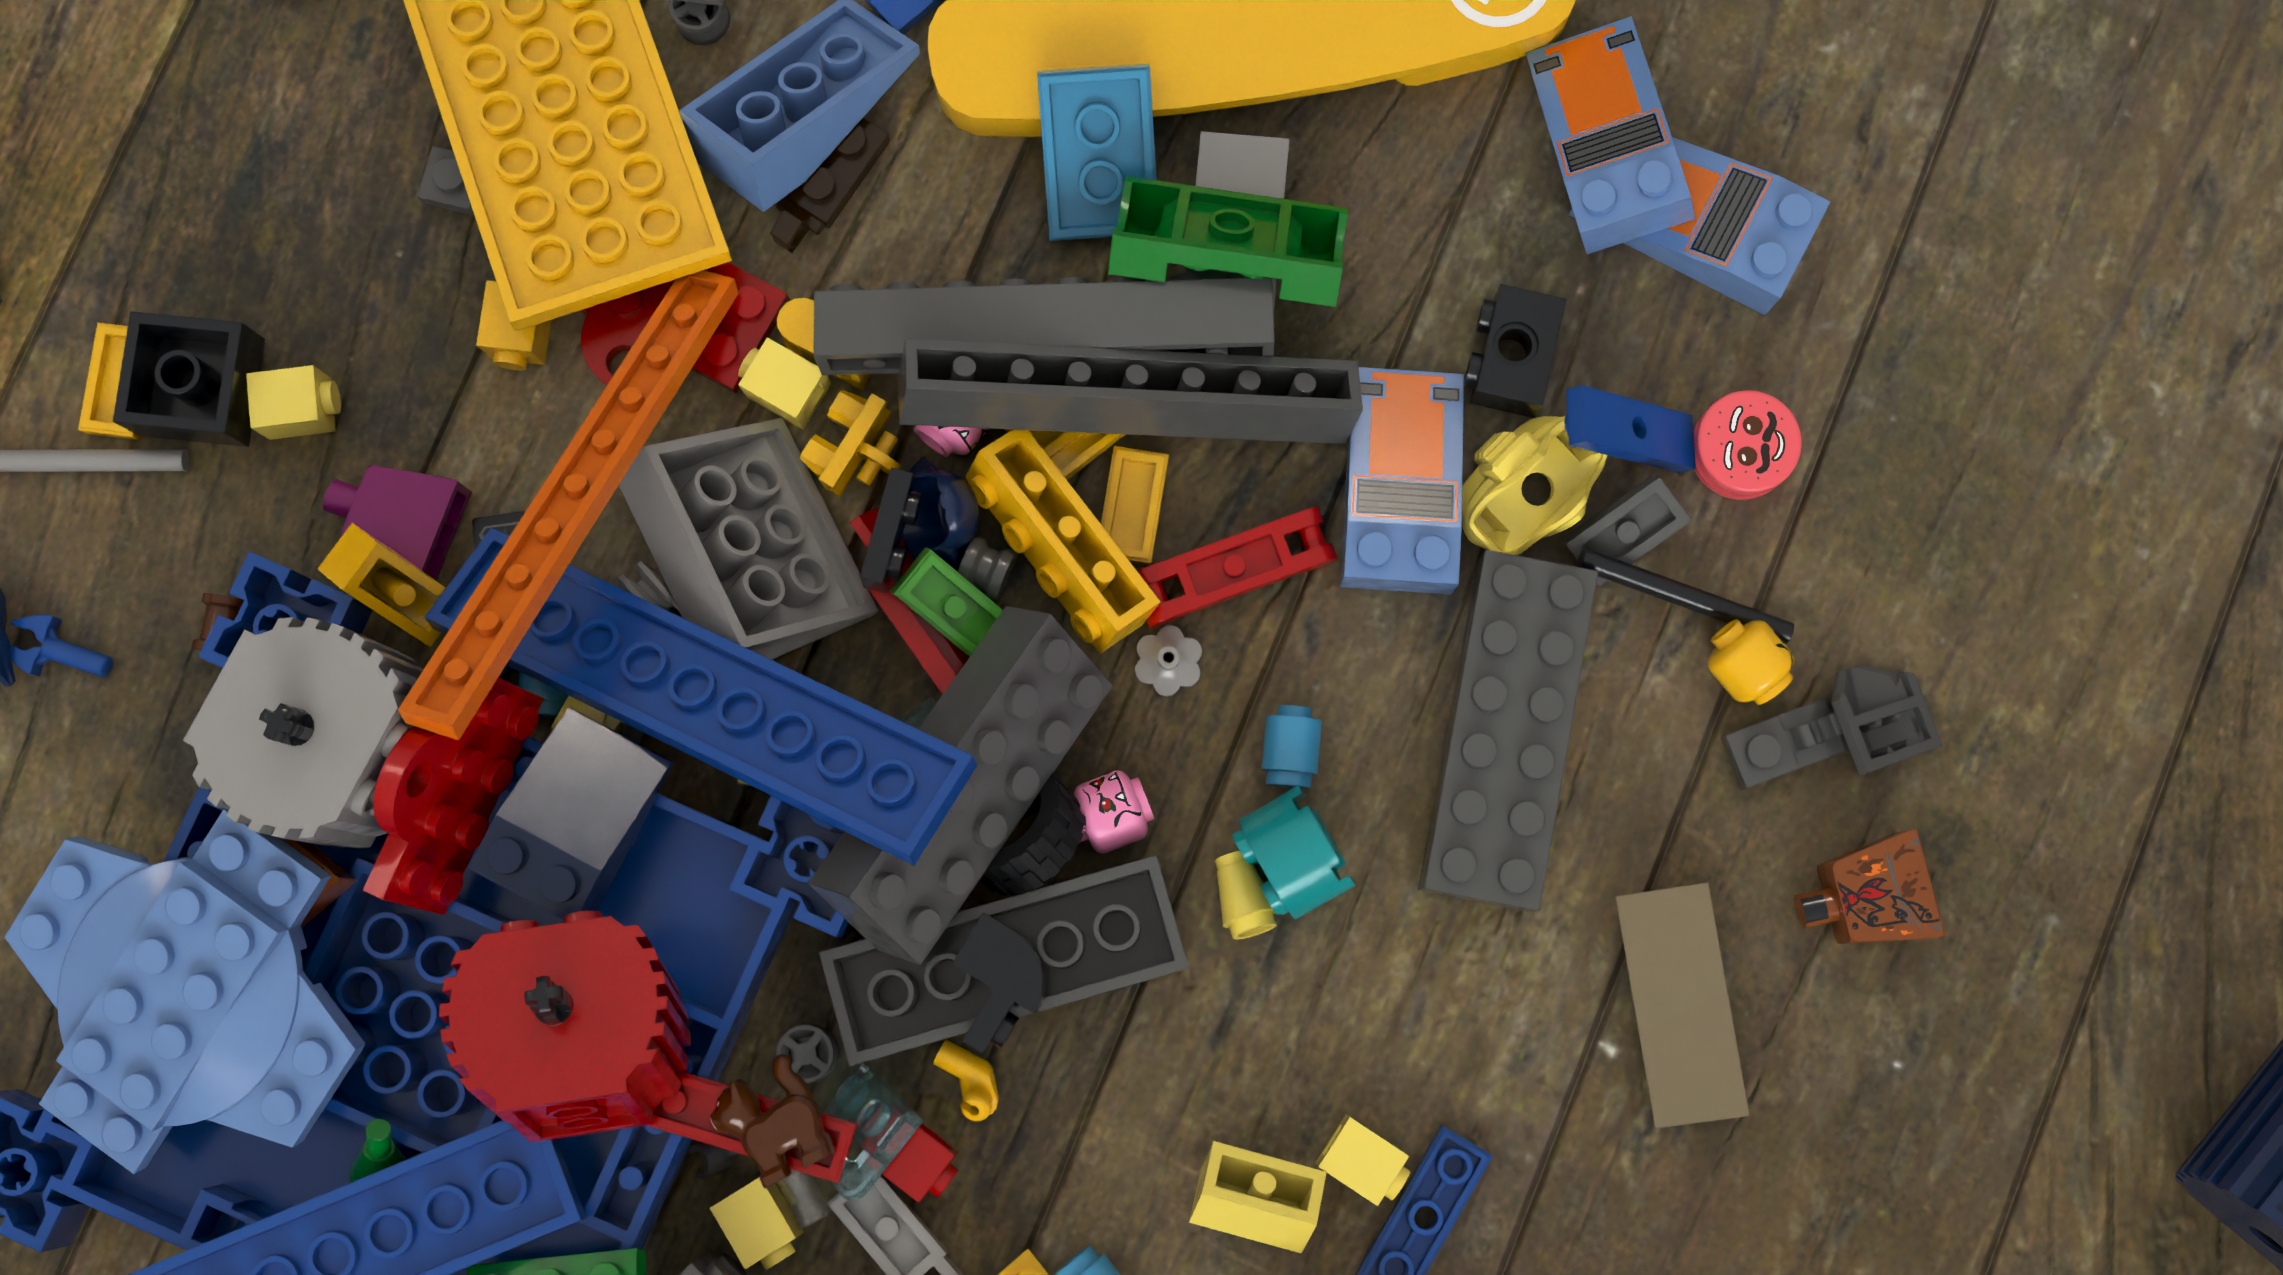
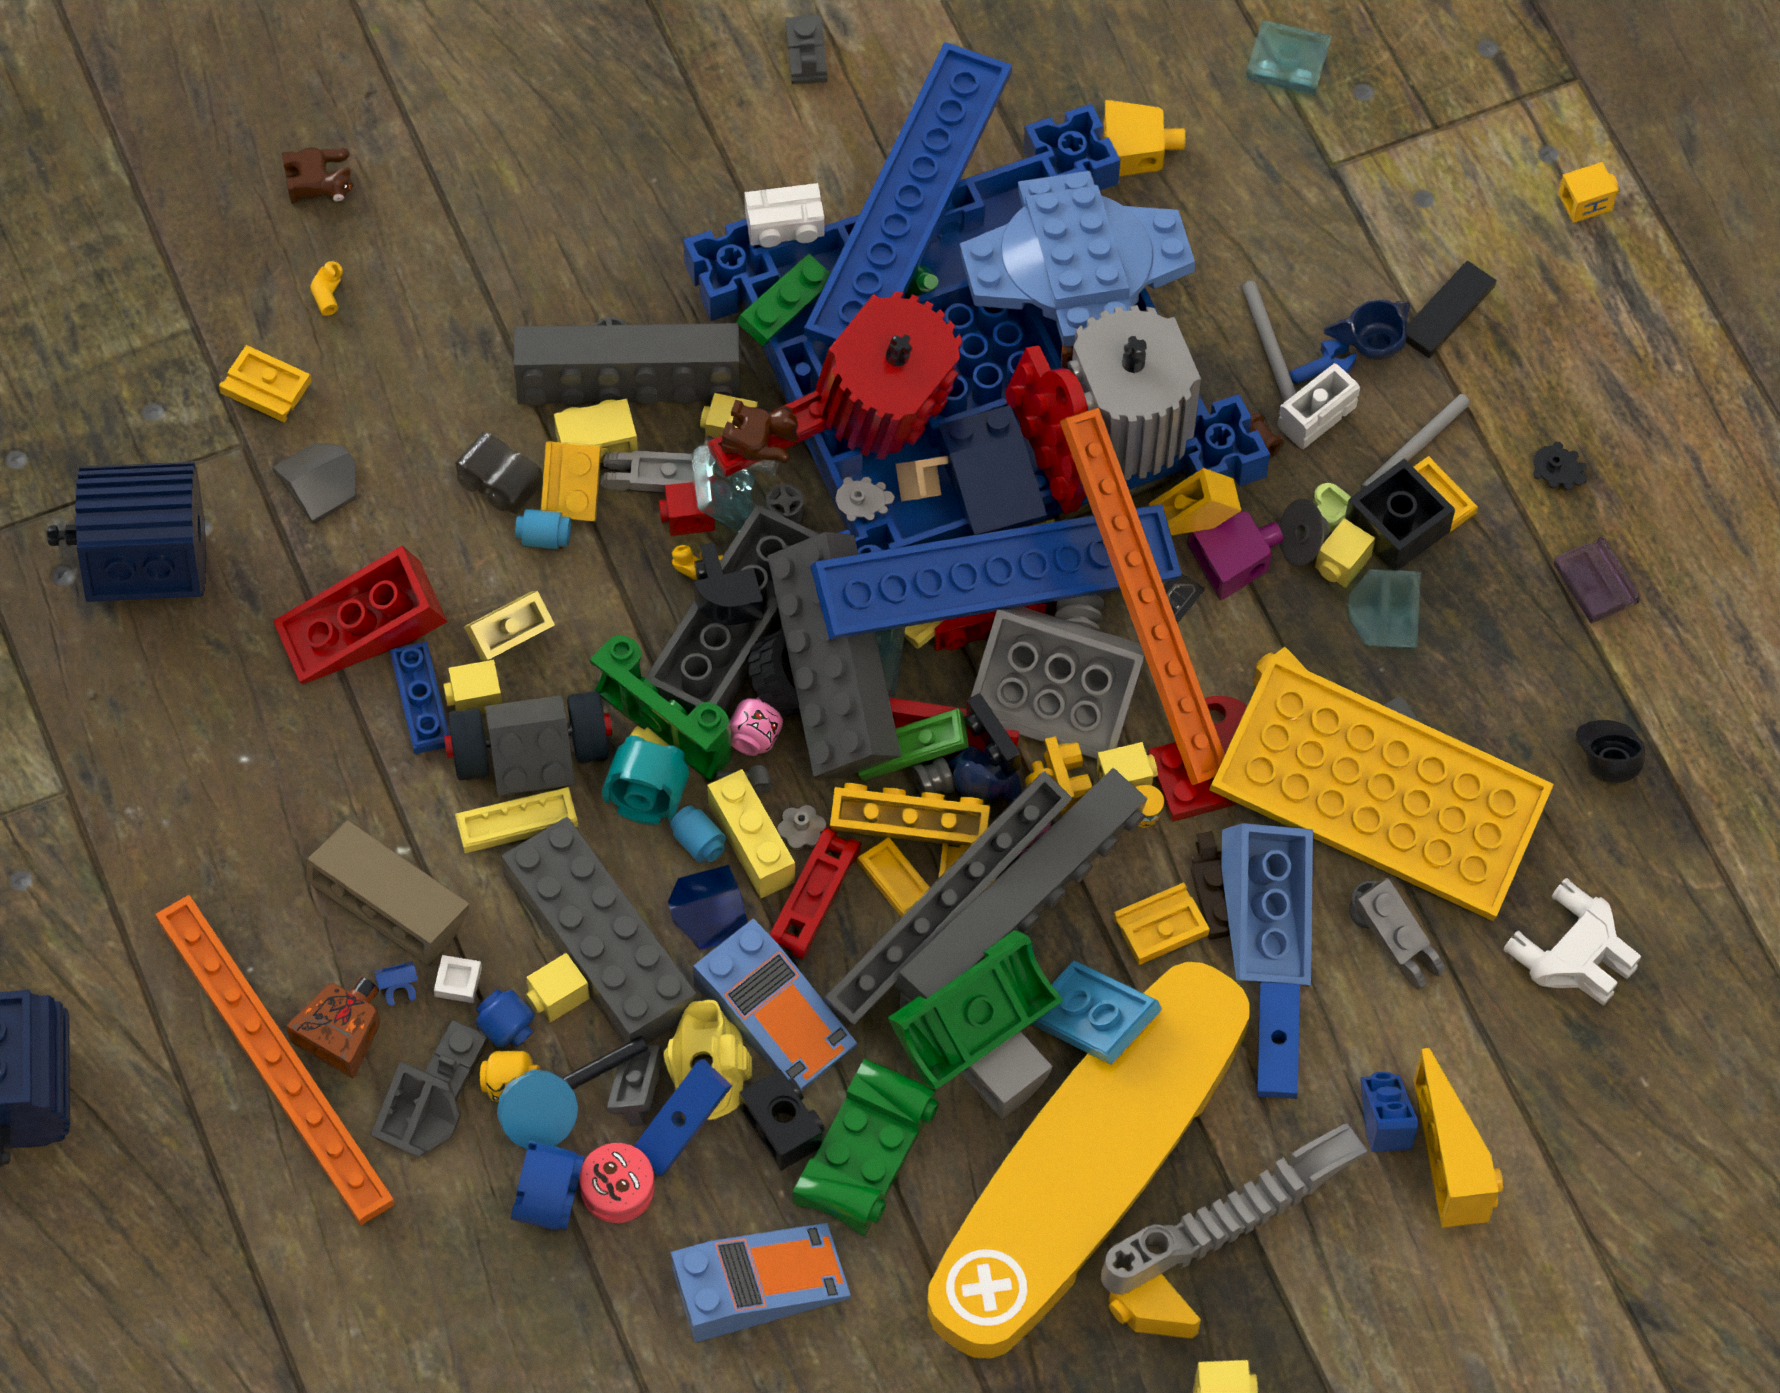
camera: 130 degrees right, 20 degrees down
(78, 123) = (1596, 580): none -> plate
(84, 730) = (1269, 340): none -> light grey bar
(123, 589) = (1318, 406): none -> white brick
(240, 475) = (1332, 503): none -> yellowish green tile
(321, 299) = (1386, 608): none -> clear light blue slope
(328, 456) = (1302, 531): none -> dark grey piece
(651, 899) = (919, 478): none -> tan panel
(741, 935) = (863, 498): none -> light grey piece
(924, 191) = (1161, 923): none -> yellow plate
(1160, 755) = (757, 776): none -> dark grey hand
(1192, 838) = (701, 735): none -> green piece
(1238, 690) = (751, 833): none -> light yellow brick
(1355, 663) = (708, 906): none -> clear blue slope
(1379, 1021) = (529, 741): none -> brick
(1462, 244) = (866, 1146): none -> green piece
(1464, 957) = (514, 819): none -> light yellow plate
(1610, 136) = (844, 1262): slope -> none
(1611, 715) = (556, 988): none -> light yellow brick
(1694, 732) = (505, 1018): none -> blue head
(1698, 829) = (457, 979): none -> white plate
(1761, 591) = (537, 1109): none -> dark azure tile
(1764, 892) = (396, 977): none -> blue tile
(1834, 496) = (545, 1185): none -> blue brick
(1974, 930) = (275, 1060): none -> orange plate

